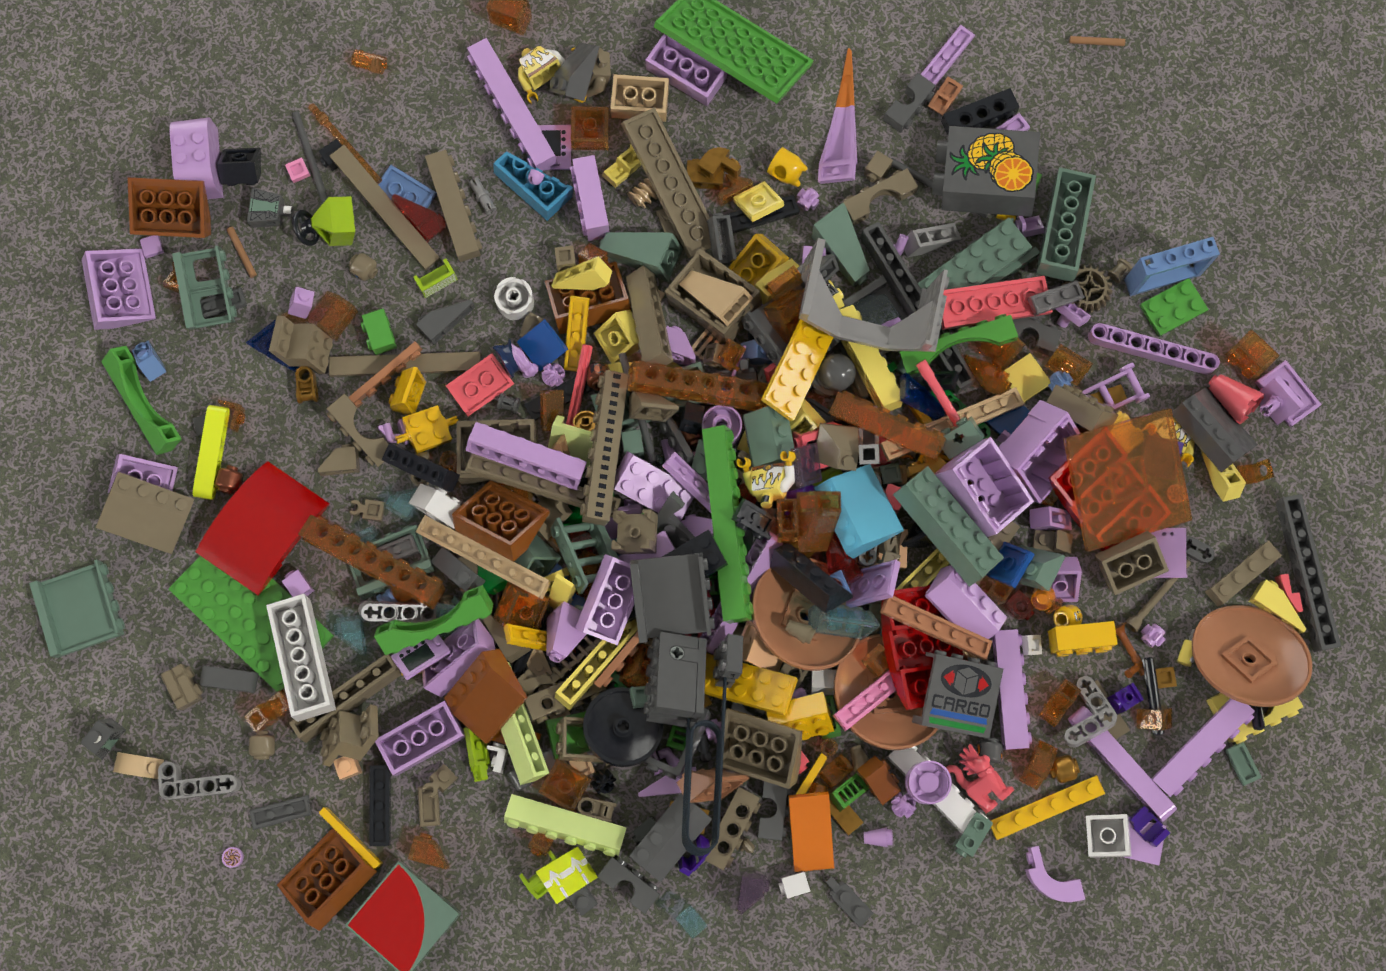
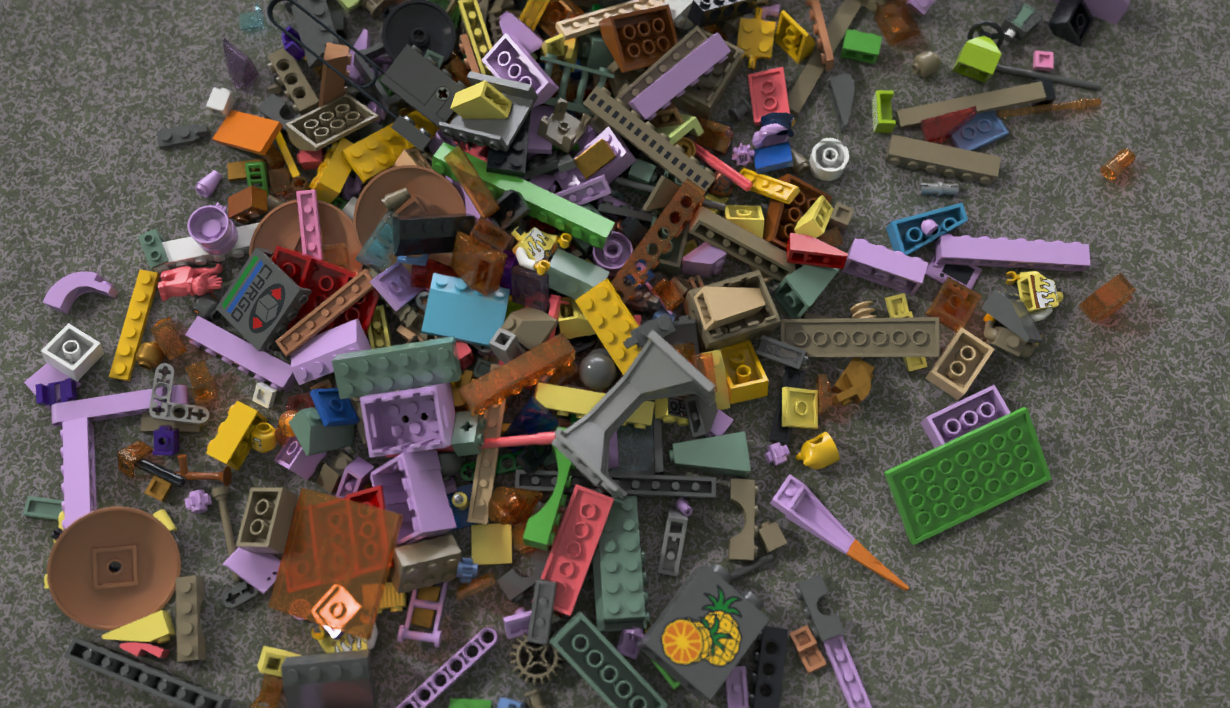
camera: 120 degrees right, 5 degrees down
(619, 259) = (811, 251): none -> red slope
(653, 480) = (595, 158): none -> pearl gold slope
(669, 606) = (481, 102): none -> light yellow slope
(751, 564) = (471, 182): none -> clear orange tile
(785, 338) = (661, 325): none -> dark grey hinge
(1012, 419) = (460, 501): none -> light yellow piece

